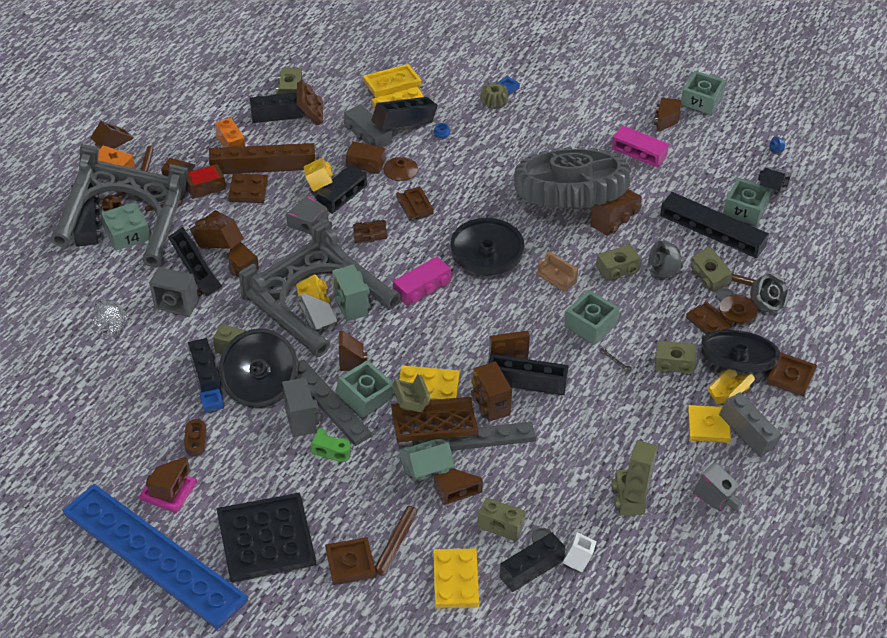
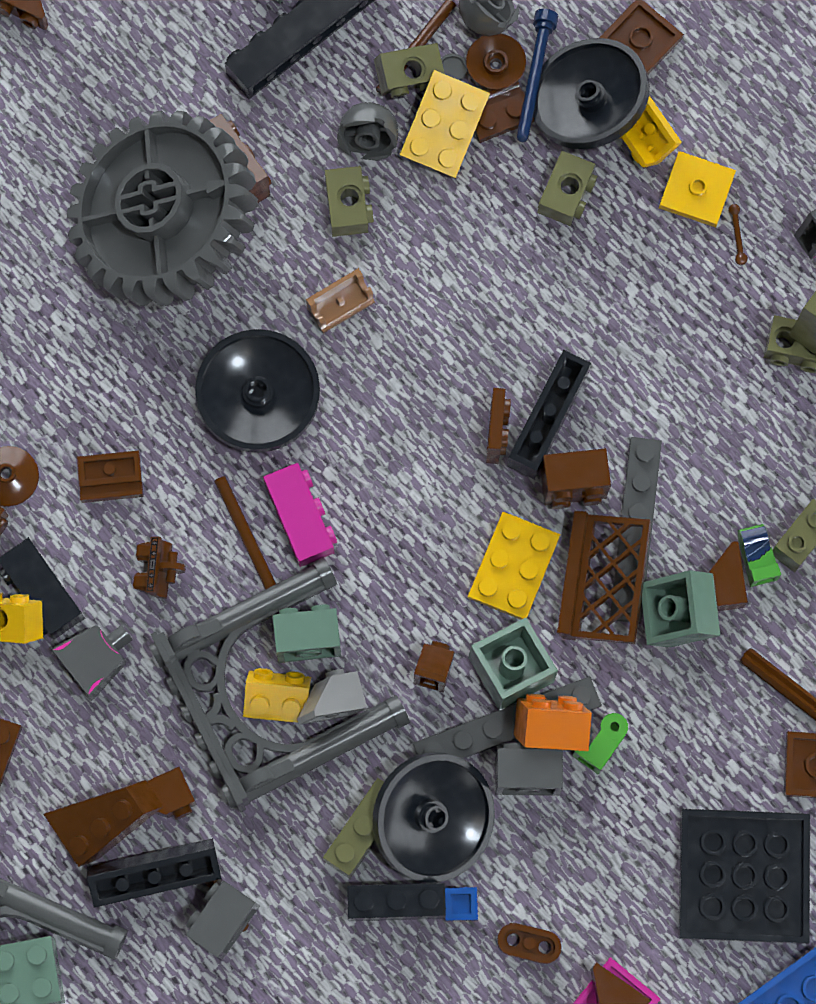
camera: 75 degrees left, 30 degrees up
(331, 404) = (552, 723): none -> orange brick
(405, 264) = (245, 532): none -> reddish brown bar
(412, 395) = (560, 597): olive bracket -> none
(471, 502) = (758, 555): none -> leg
(591, 317) = (459, 281): sand green brick -> none
(627, 369) = (560, 265): clear smoke hinge -> none
(640, 146) = (87, 70): dark pink brick -> none
(674, 456) = (741, 258): none -> reddish brown hinge
(686, 291) = (444, 124): none -> yellow plate
(750, 424) = (729, 134): dark grey brick -> none
(775, 327) = (544, 22): none -> dark blue piece

